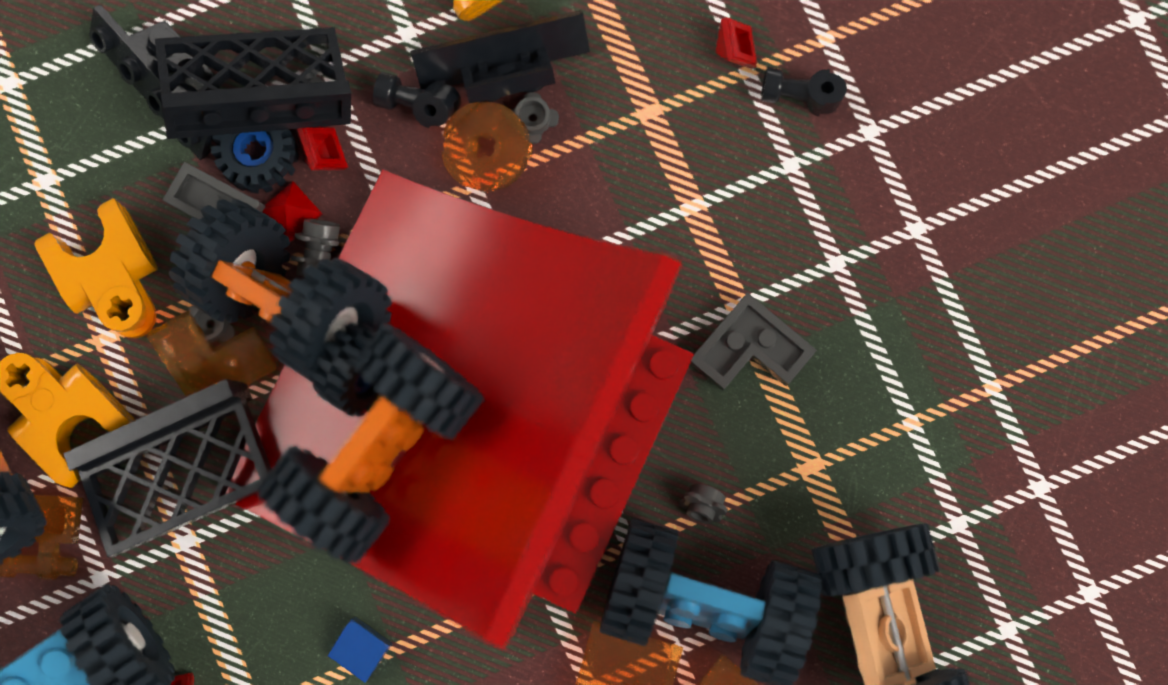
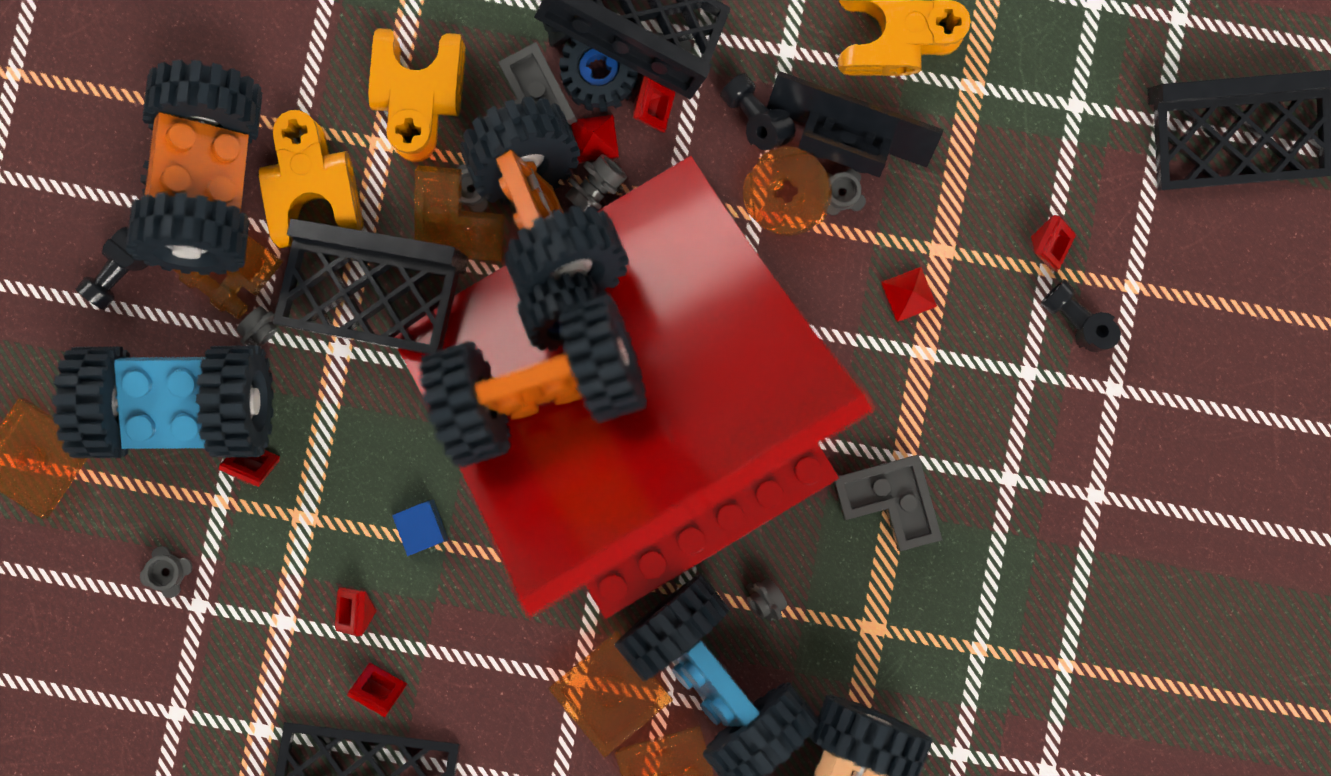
camera: 40 degrees right, 5 degrees up
(96, 570) = (257, 327): none -> dark grey plate
(646, 166) = (908, 294): none -> red slope

